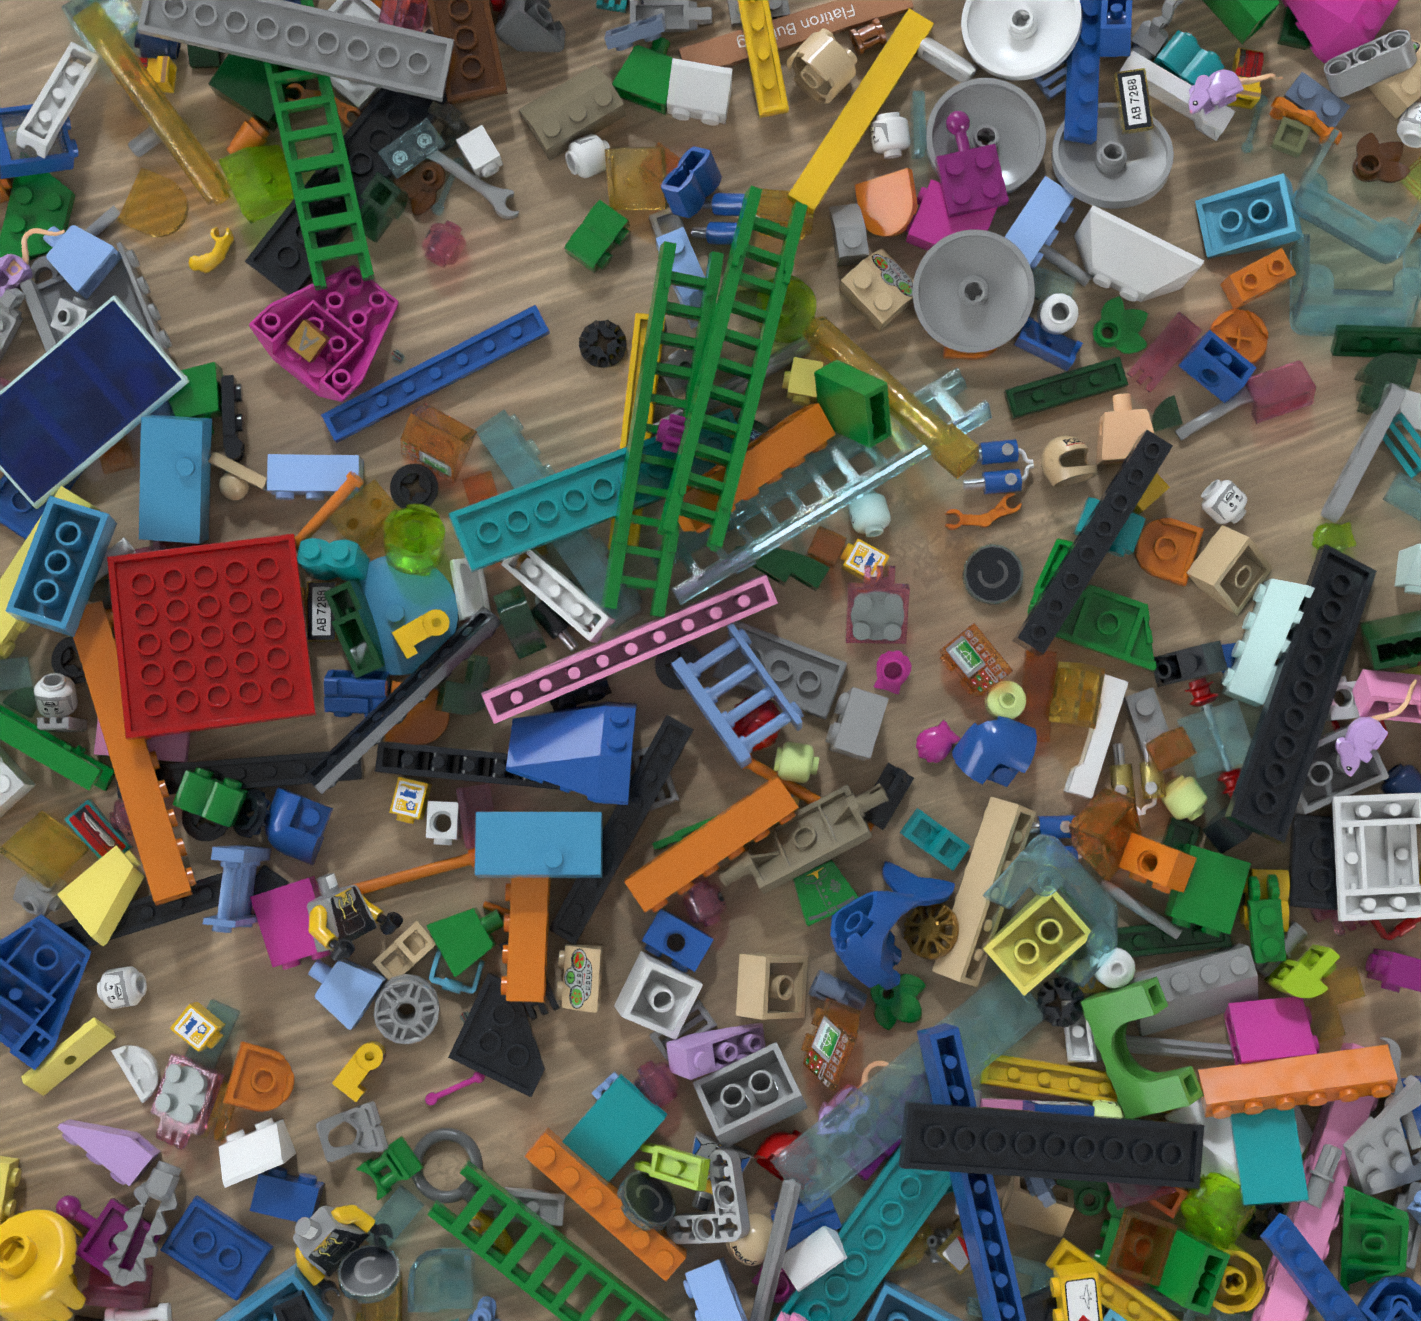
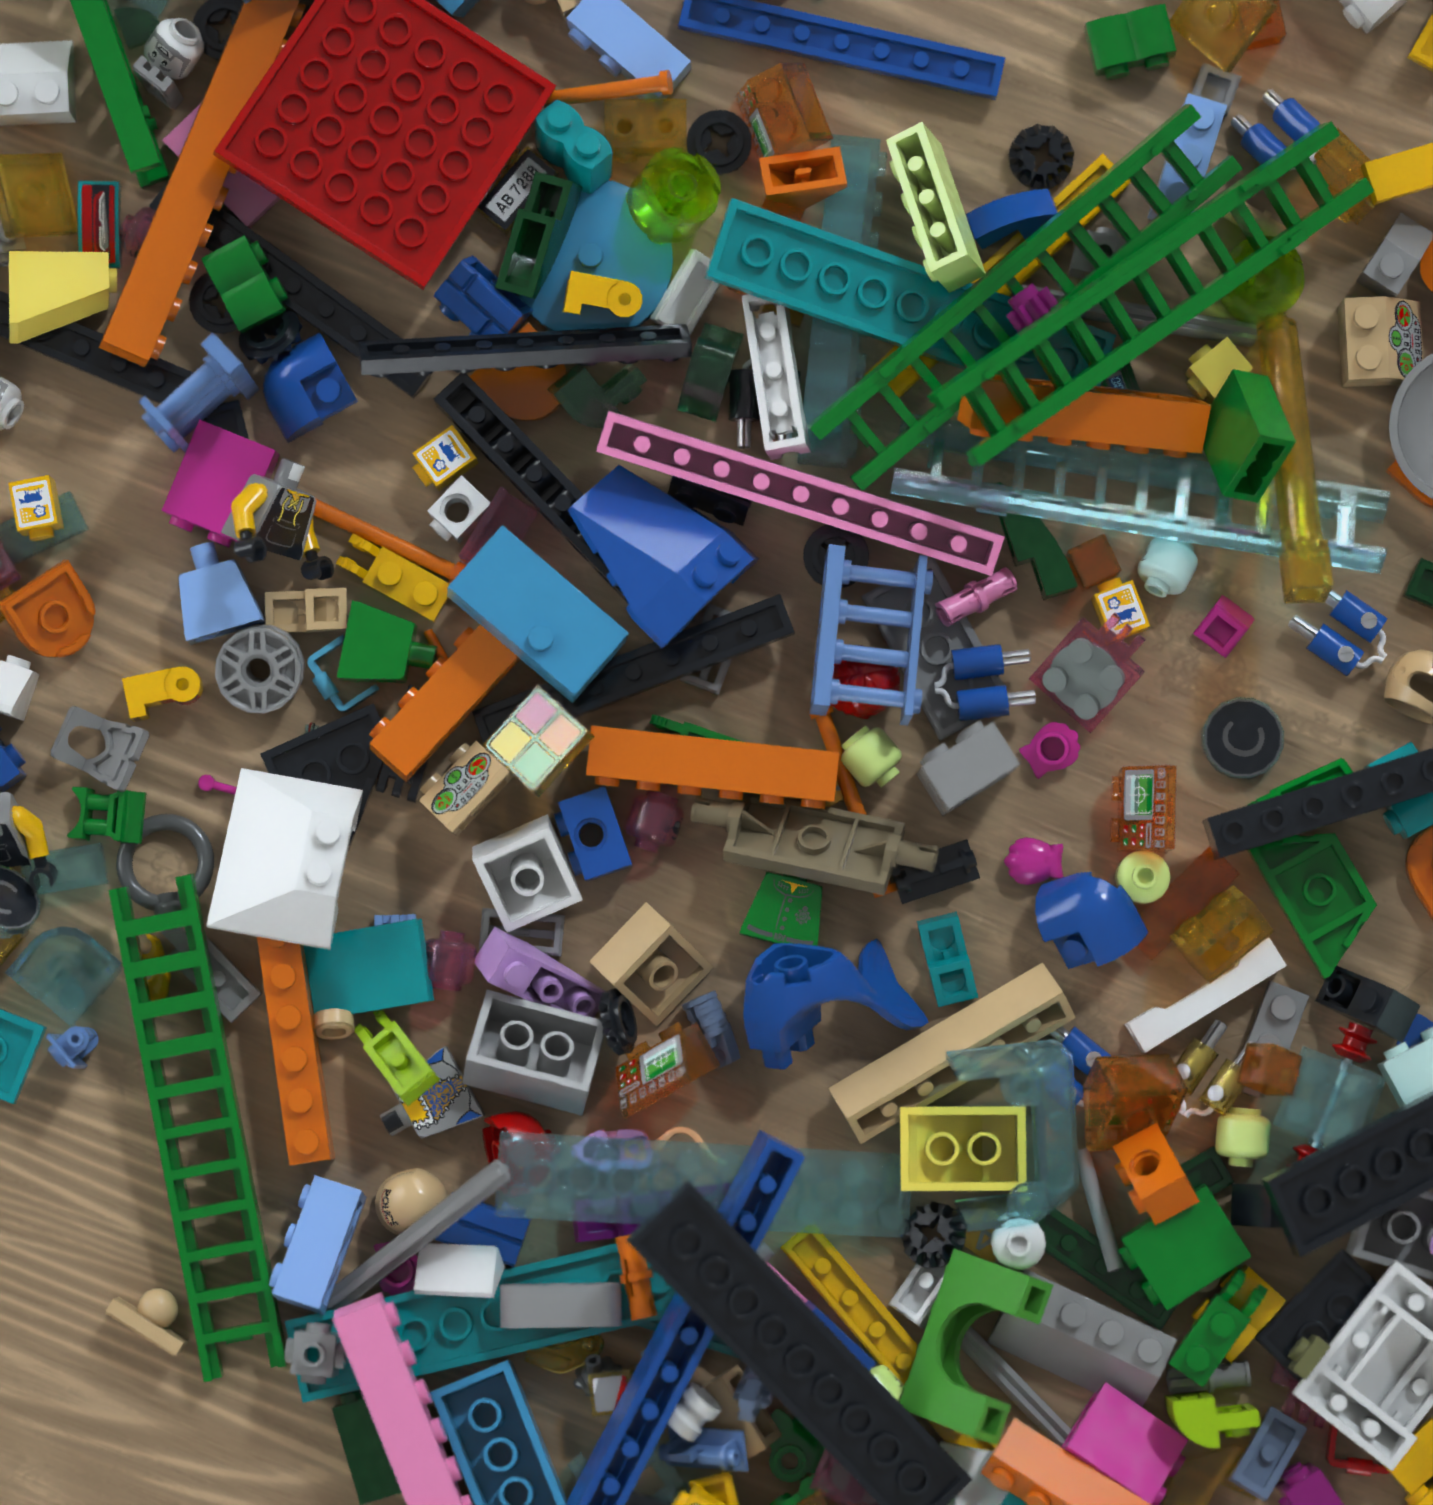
camera: 45 degrees right, 0 degrees up
(443, 889) = (399, 579): none -> yellow hinge
(478, 467) = (803, 177): none -> orange slope
(513, 1107) = (284, 858): none -> white slope
(568, 422) = (935, 208): none -> yellowish green brick
(601, 916) = (538, 741): none -> tile
(609, 397) = (1019, 211): none -> blue slope
(619, 1173) = (333, 1023): none -> tan tile
(646, 1201) = (338, 1069): tile -> none
(691, 182) = (1276, 65): blue brick -> none
(724, 1210) = (409, 1146): light grey beam -> none
(777, 622) = (976, 596): none -> bright pink pin
(783, 1037) = (618, 1021): none -> black gear
(833, 677) = (984, 701): none -> blue piece
(888, 1228) = (560, 1305): none -> light grey beam
(900, 1003) = (767, 1095): green plate -> none
(921, 1178) = (636, 1279): none -> orange pin
(928, 520) = (1224, 626): none -> dark pink slope
(931, 931) = (863, 1047): pearl gold wheel -> none
(985, 519) = (1284, 675): orange piece -> none
(1016, 1222) = (693, 1412): none -> white wheel
(1039, 1237) = (711, 1450): none -> medium blue hinge
(1330, 892) = (1307, 1355): none -> olive plate
(1352, 966) = (1267, 1454): none -> sand blue plate

